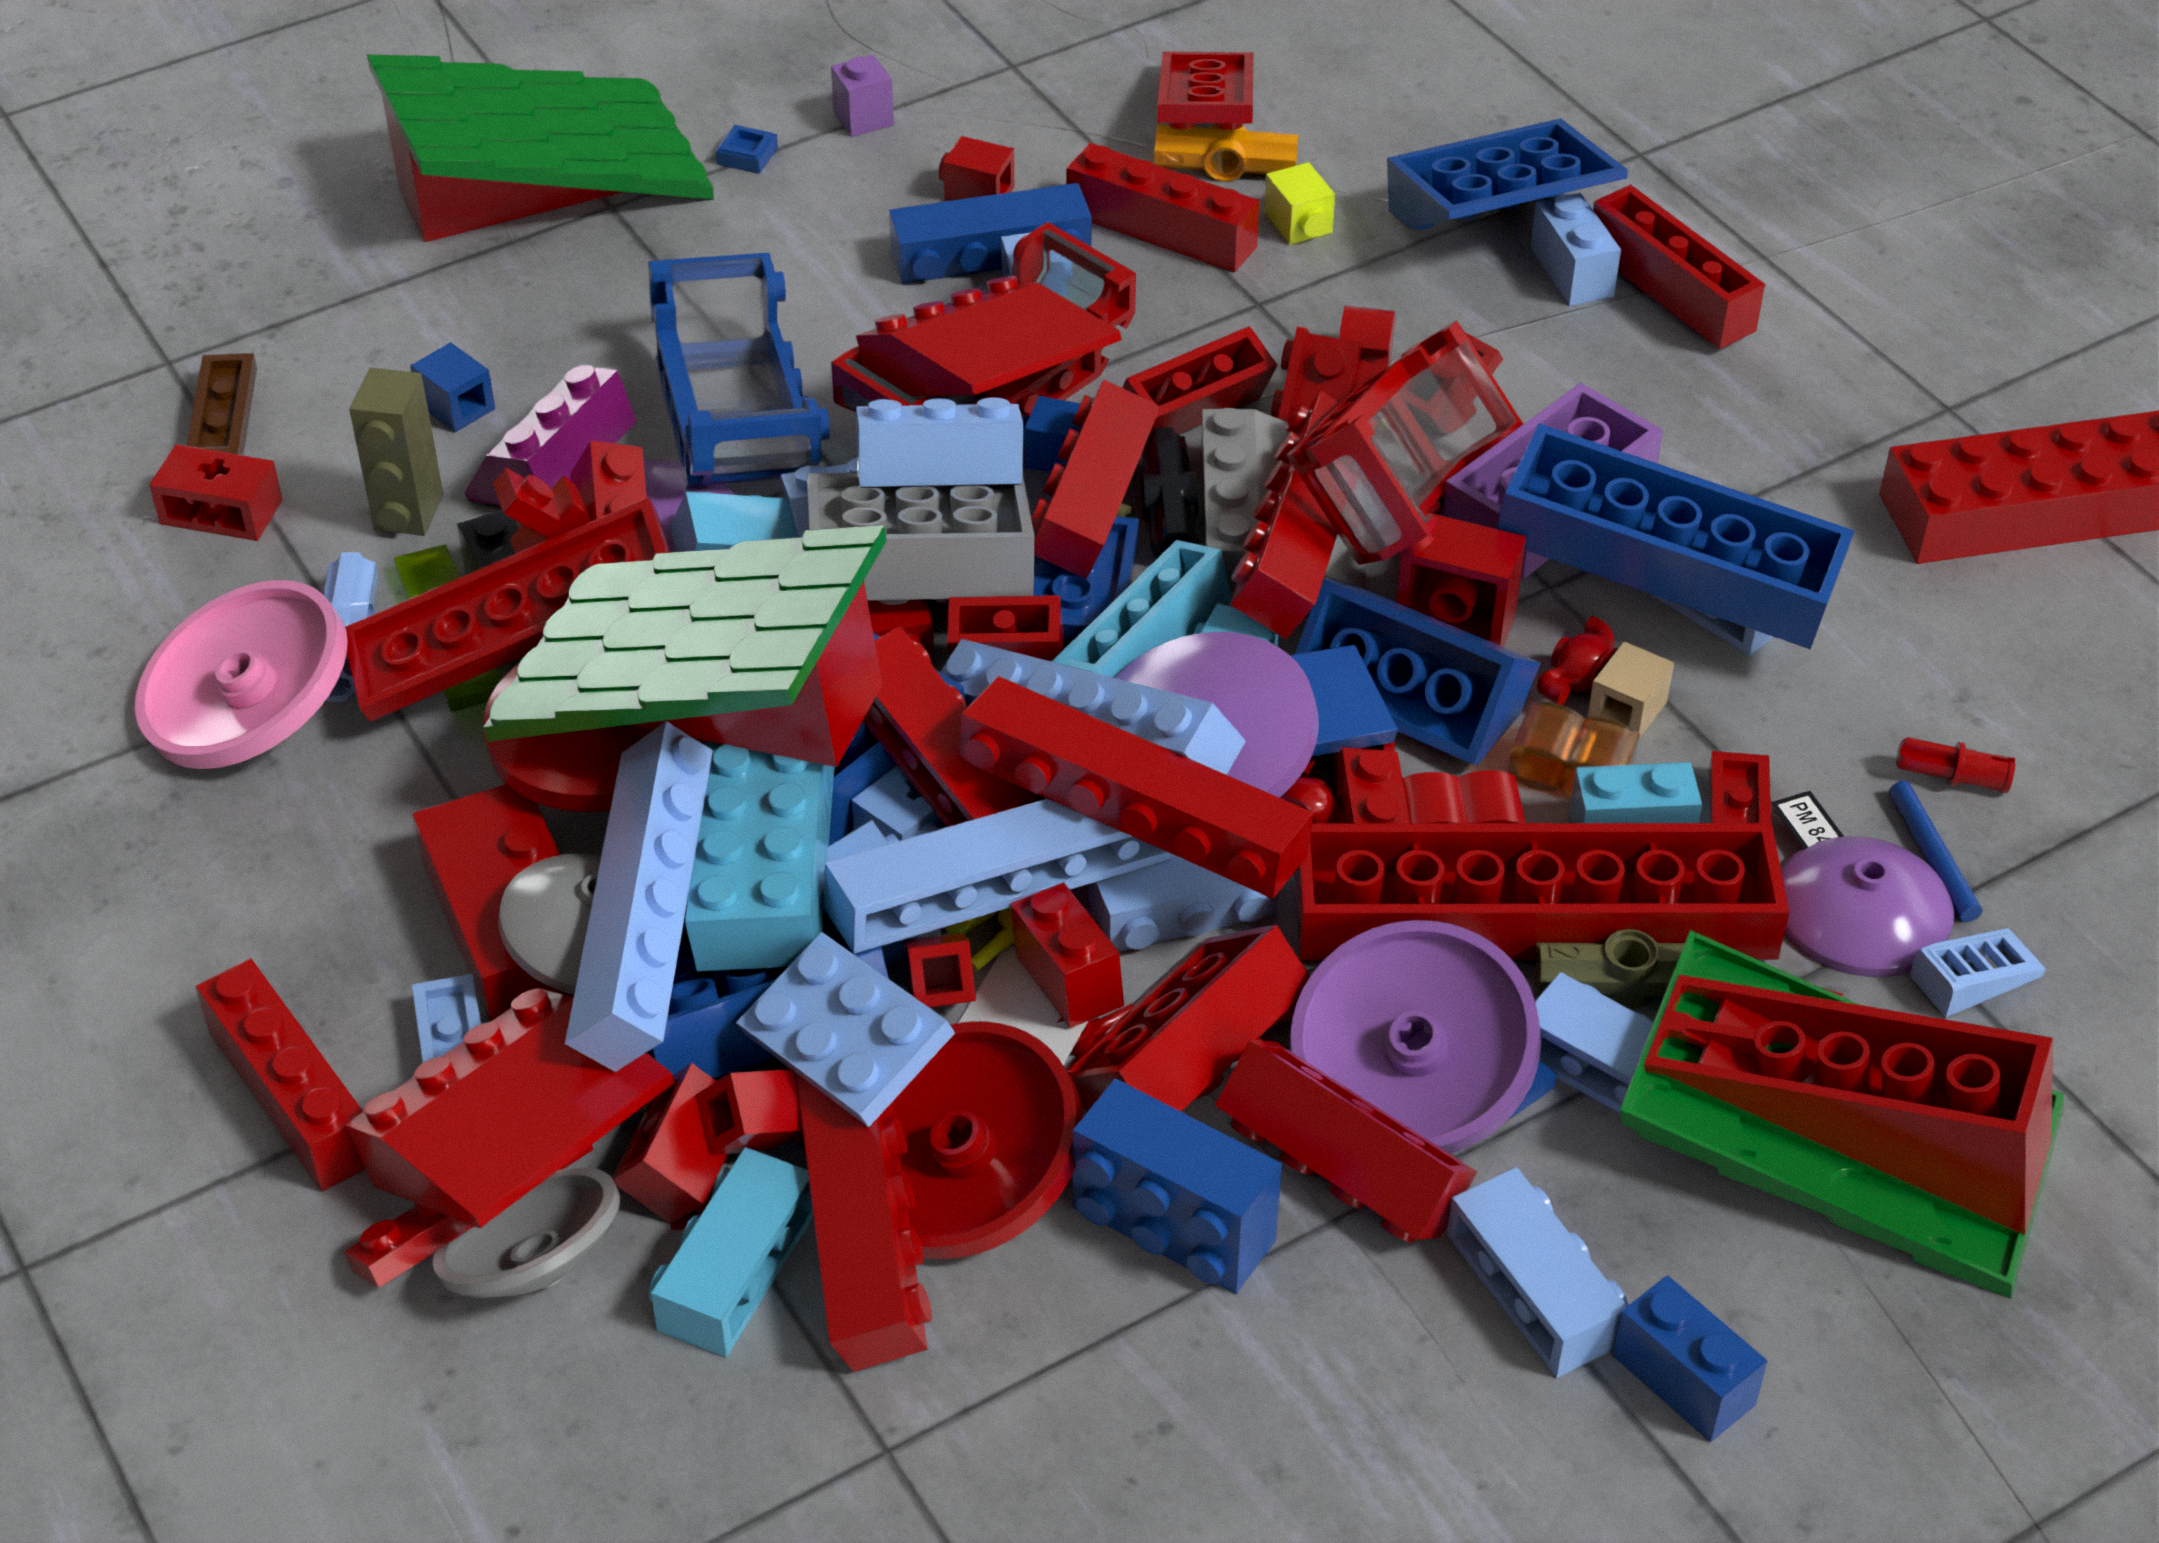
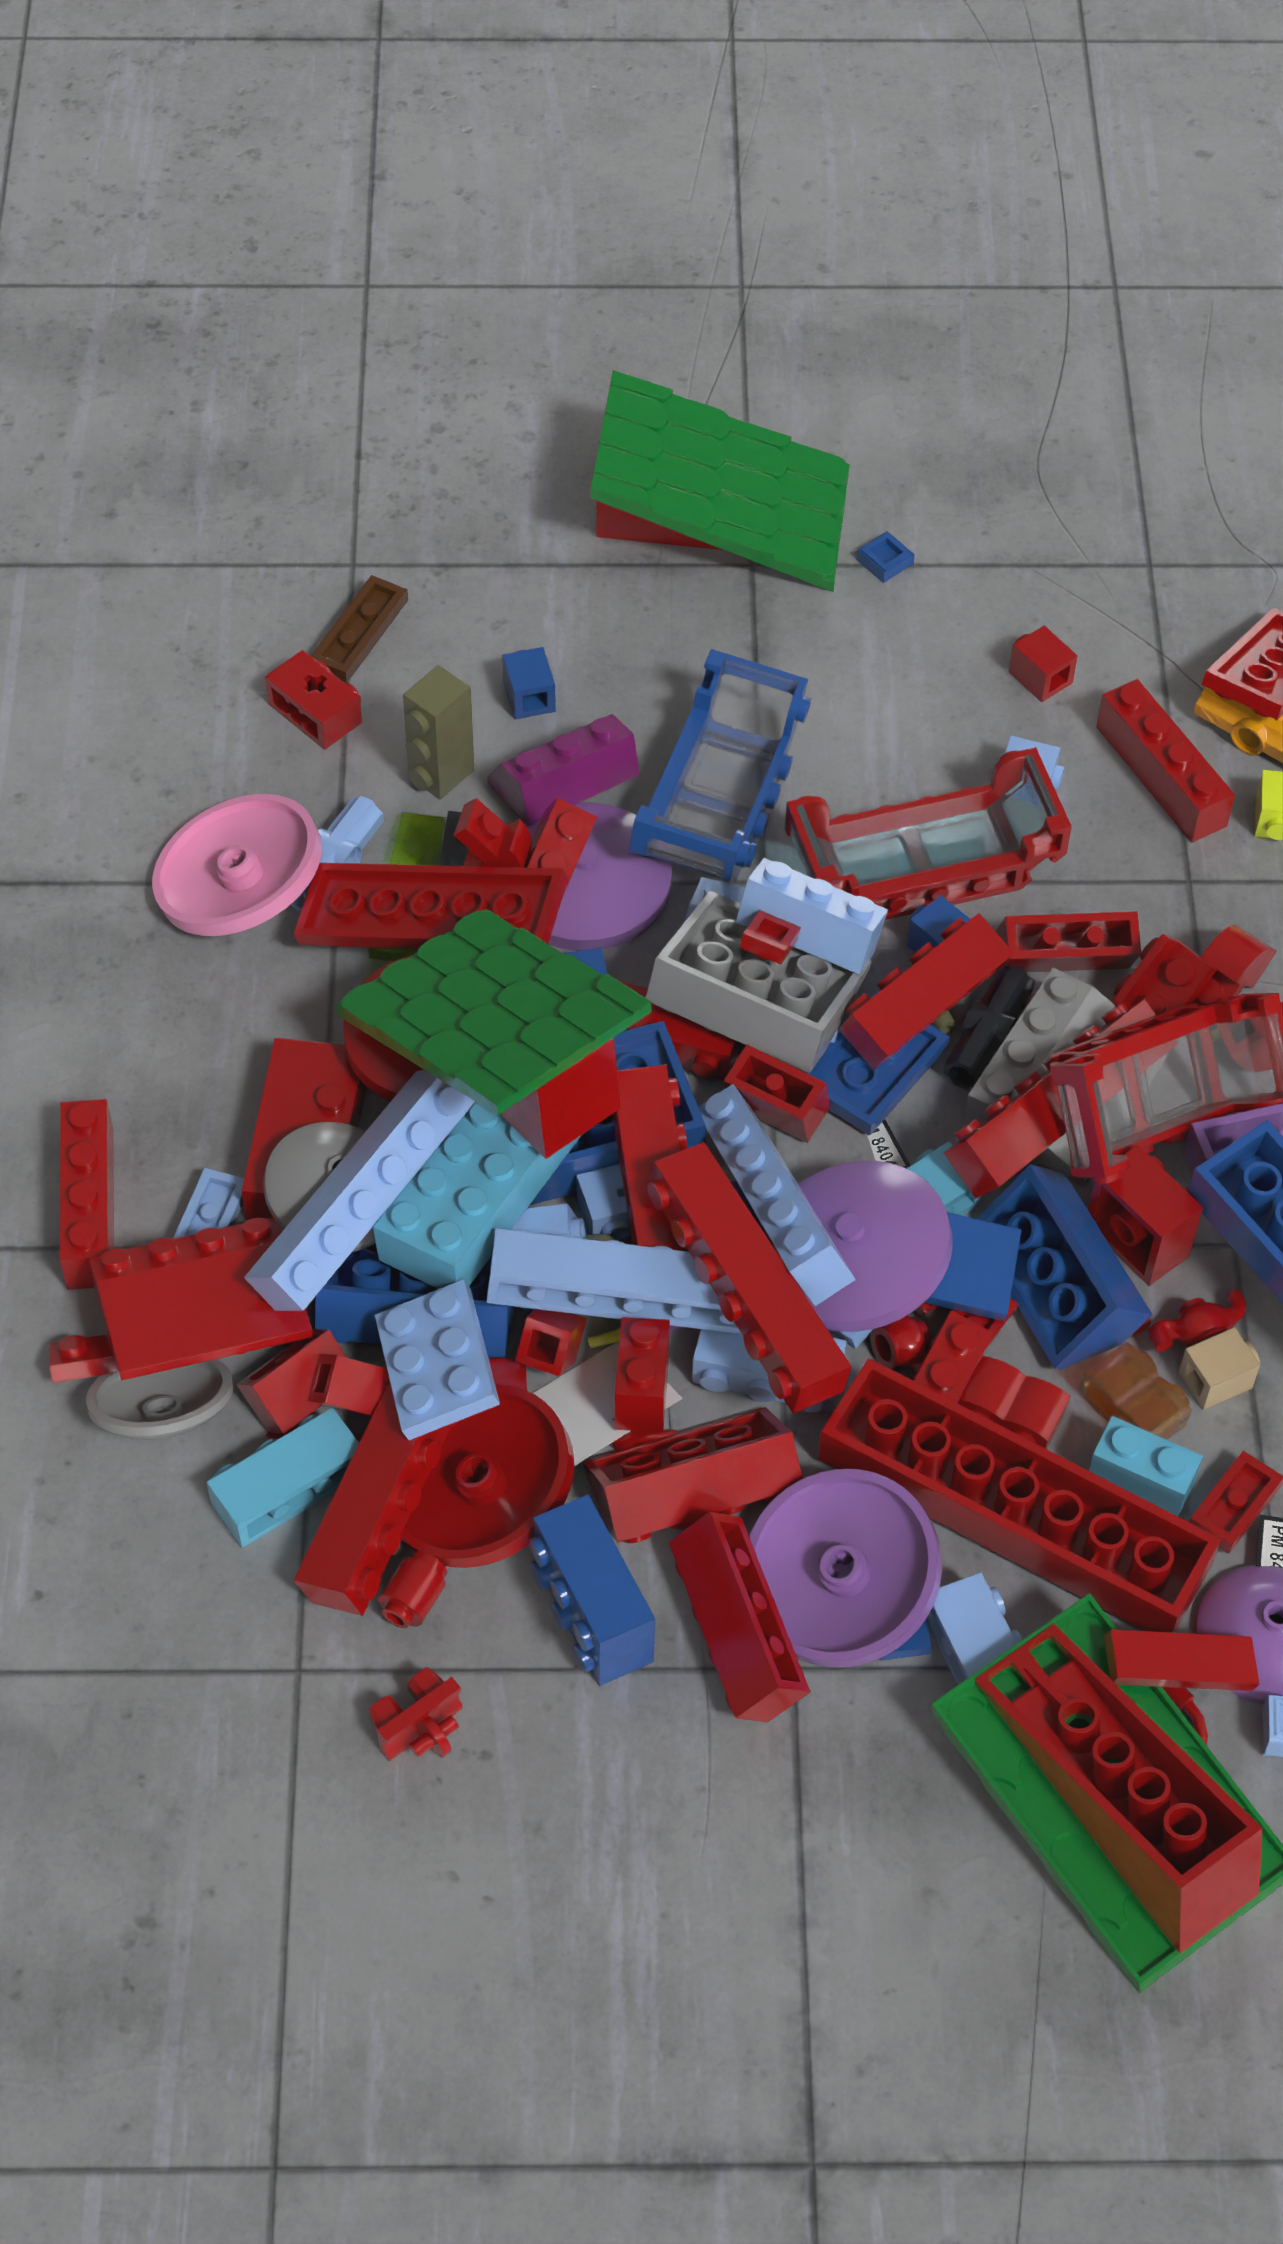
camera: 30 degrees right, 10 degrees up
(724, 520) = (636, 910): medium azure brick -> none
(862, 95) = (1000, 548): medium lavender brick -> none
(913, 479) = (770, 937): none -> red plate
(965, 1294) = (413, 1590): none -> red brick
(967, 233) = (988, 714): blue brick -> none
(981, 339) = (914, 834): red slope -> none
(1078, 1421) = (423, 1723): none -> red hips
(1154, 609) = (883, 1131): medium azure brick -> none
(1537, 1271) = (807, 1786): light blue brick -> none
(1624, 968) = (1019, 1577): olive piece -> none
(1689, 1358) = (860, 1908): blue brick -> none
(1821, 950) = (1181, 1660): none -> red tile

